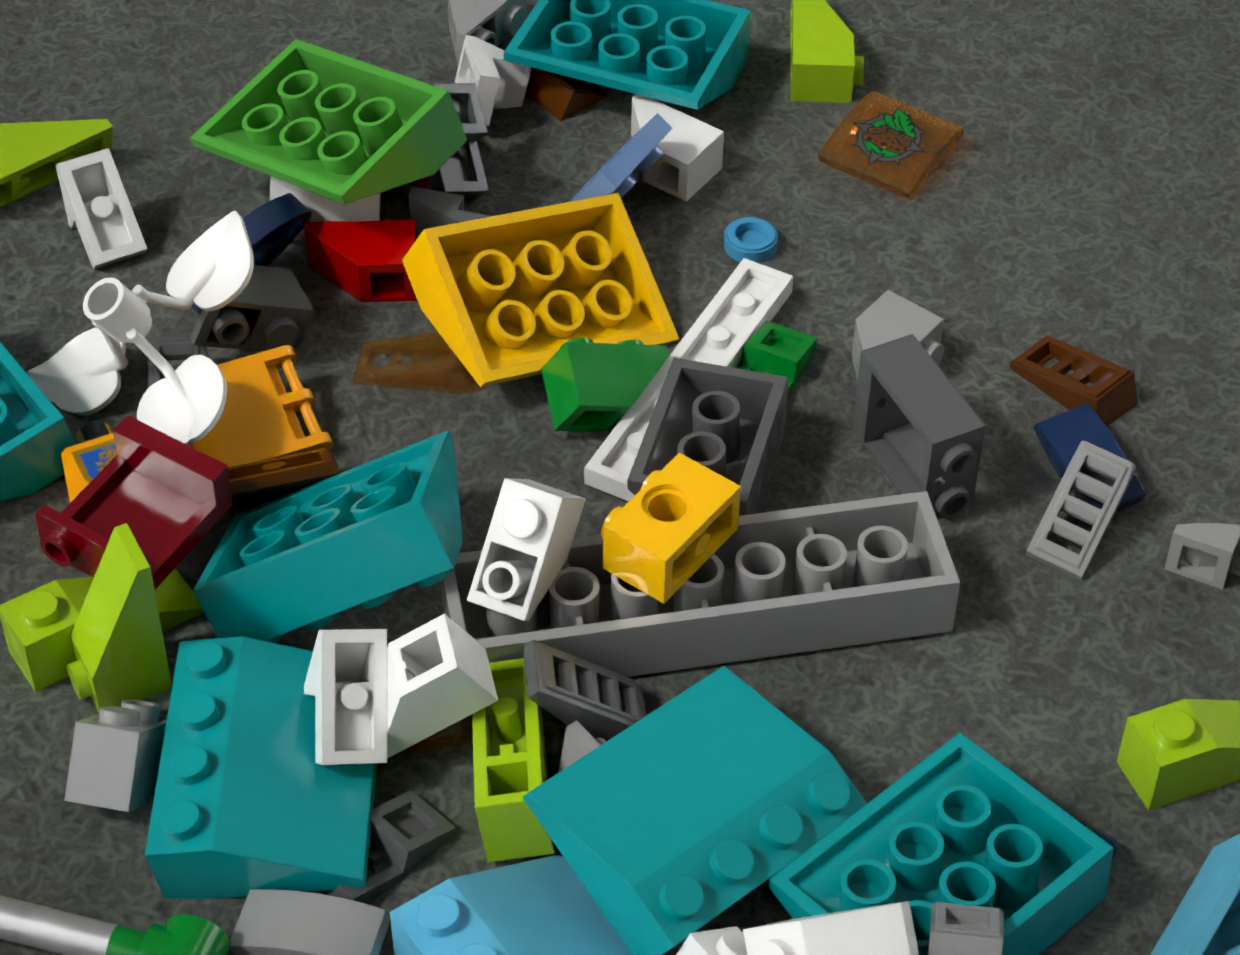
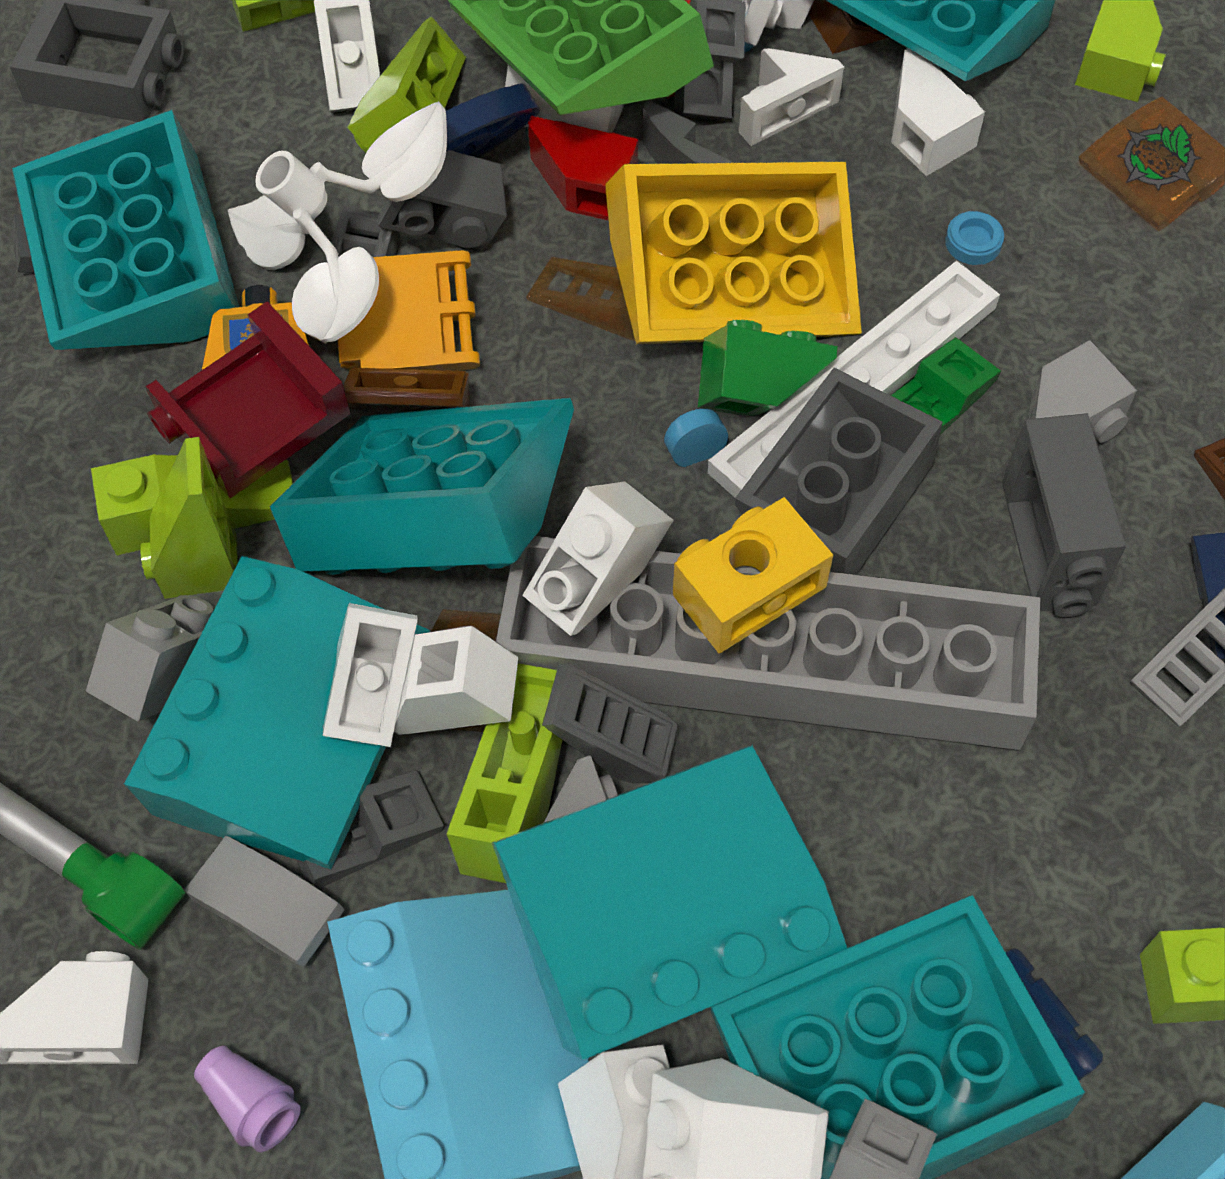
camera: 20 degrees right, 15 degrees up
(170, 223) = (413, 80): none -> lime slope
(535, 156) = (789, 92): none -> white slope
(563, 453) = (695, 437): none -> dark azure tile
(637, 153) = (866, 129): medium blue plate -> none

